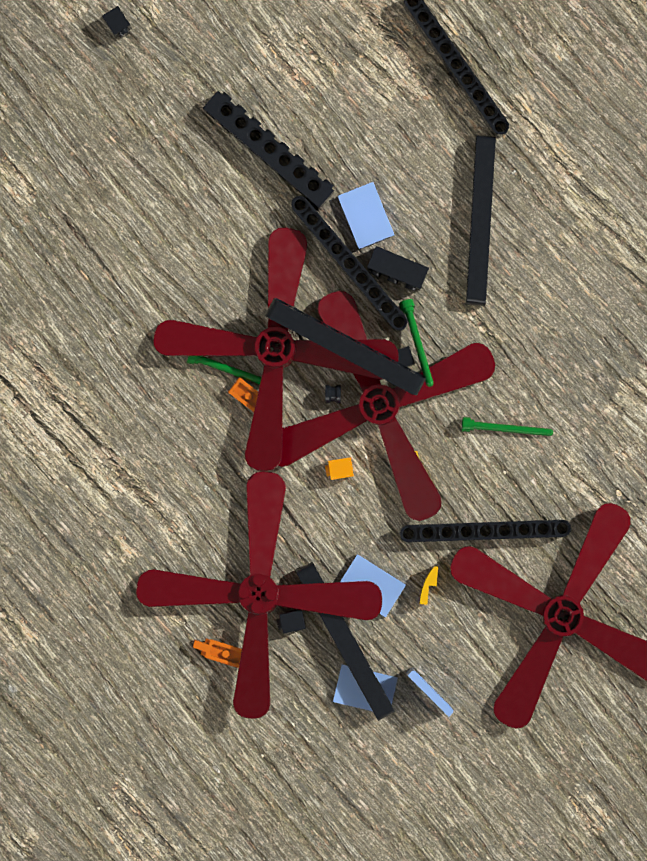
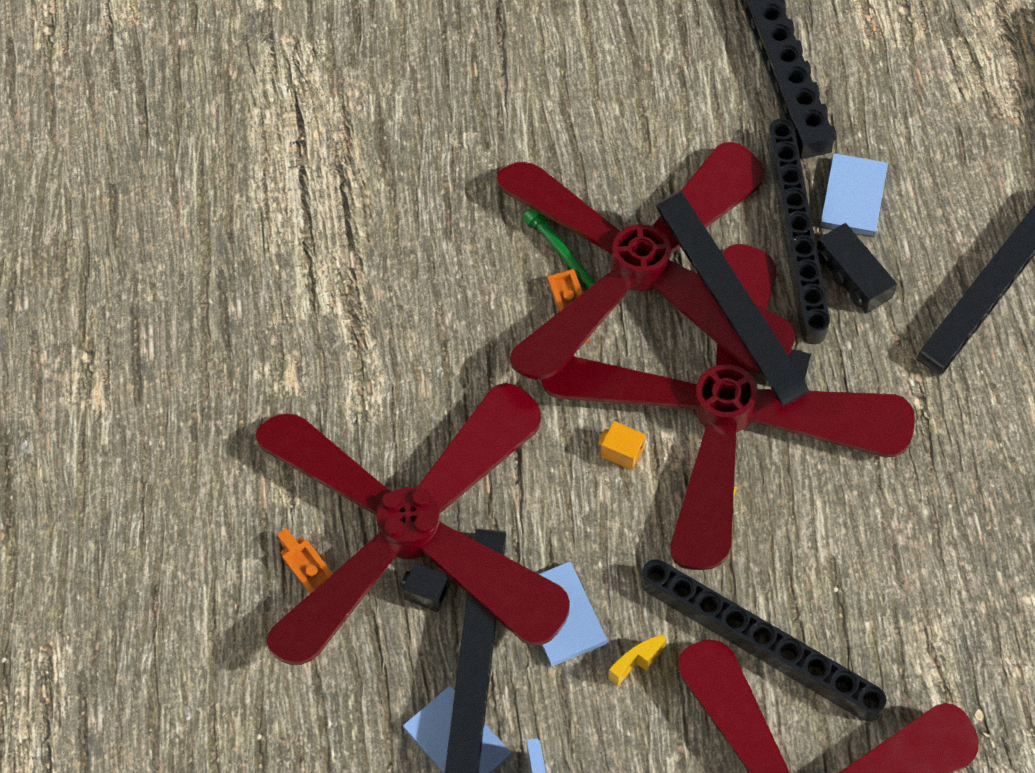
camera: 40 degrees right, 25 degrees down
(332, 394) = (675, 356): black wheel -> none
(407, 307) = (839, 317): green piece -> none
(469, 425) = (828, 499): green piece -> none

